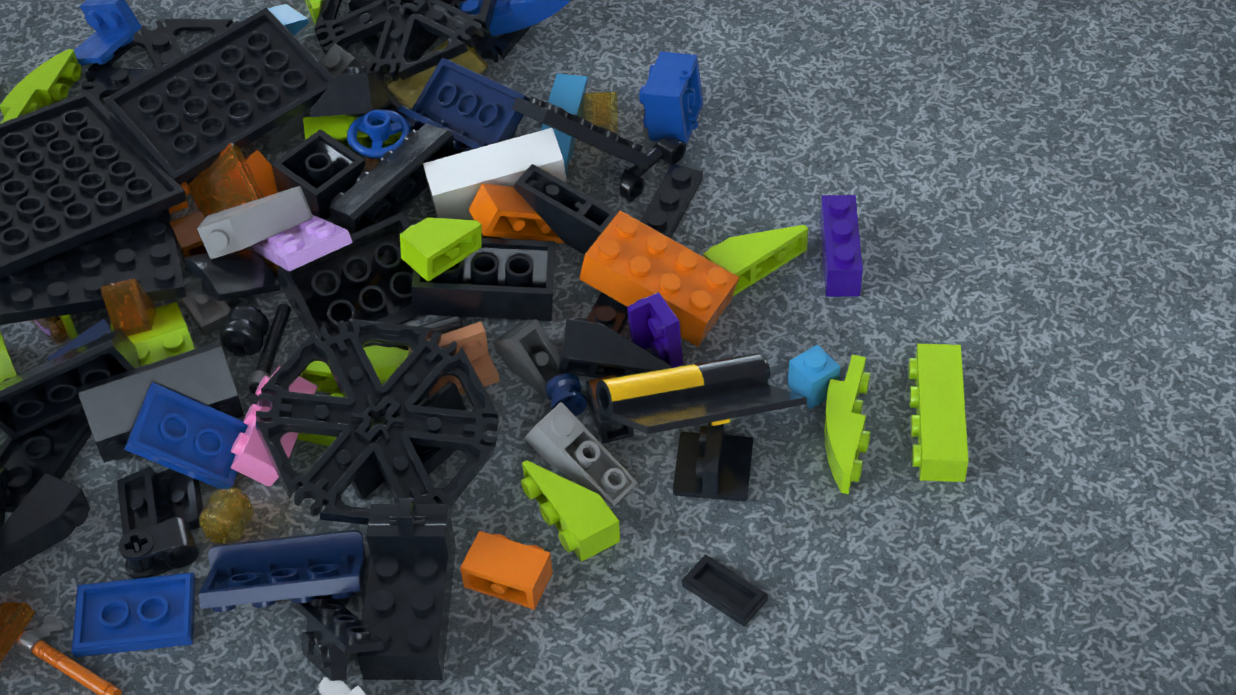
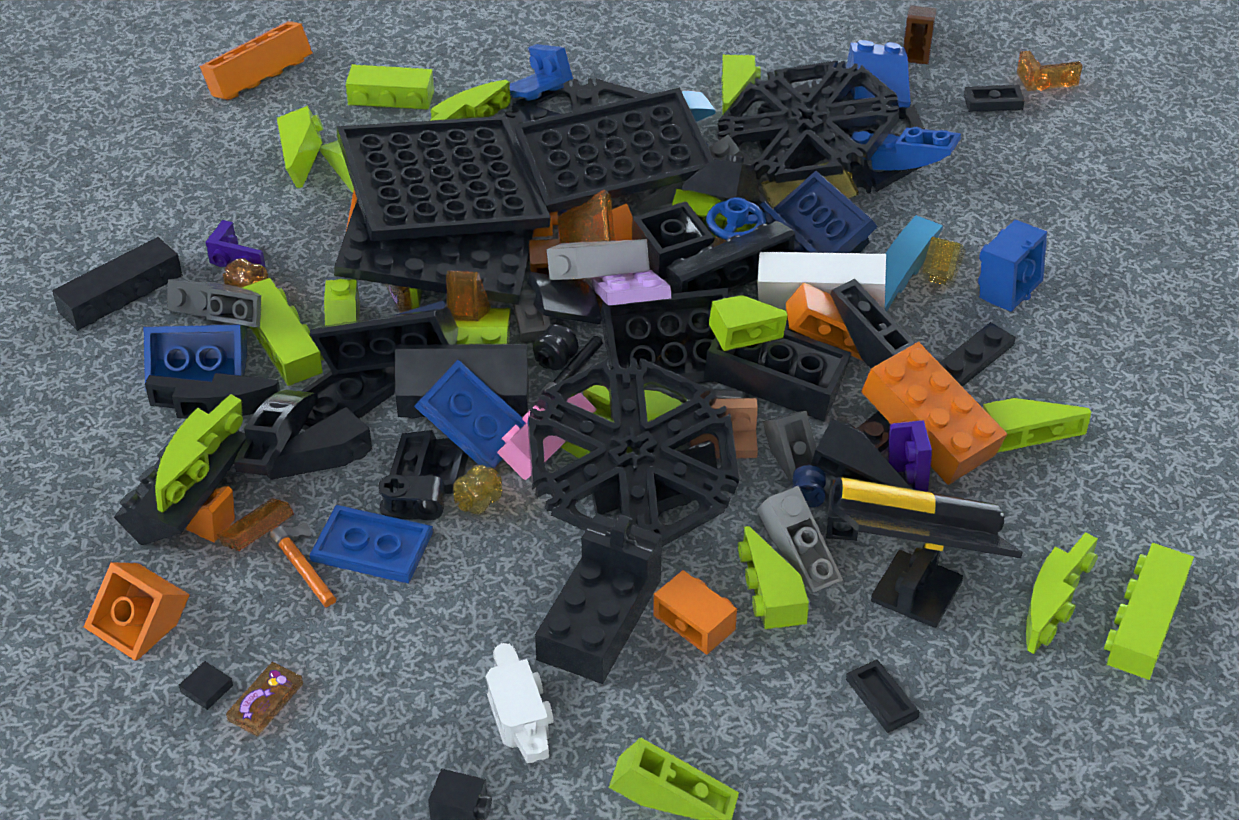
camera: 20 degrees right, 5 degrees down
(283, 570) = (507, 546): dark blue bracket -> none
(333, 634) = (522, 606): black bracket -> none
(582, 130) = (915, 266): black plate -> none
(668, 149) = (992, 308): black bar -> none
(811, 374) = (1039, 537): dark azure brick -> none
(841, 246) = (1117, 437): dark purple brick -> none

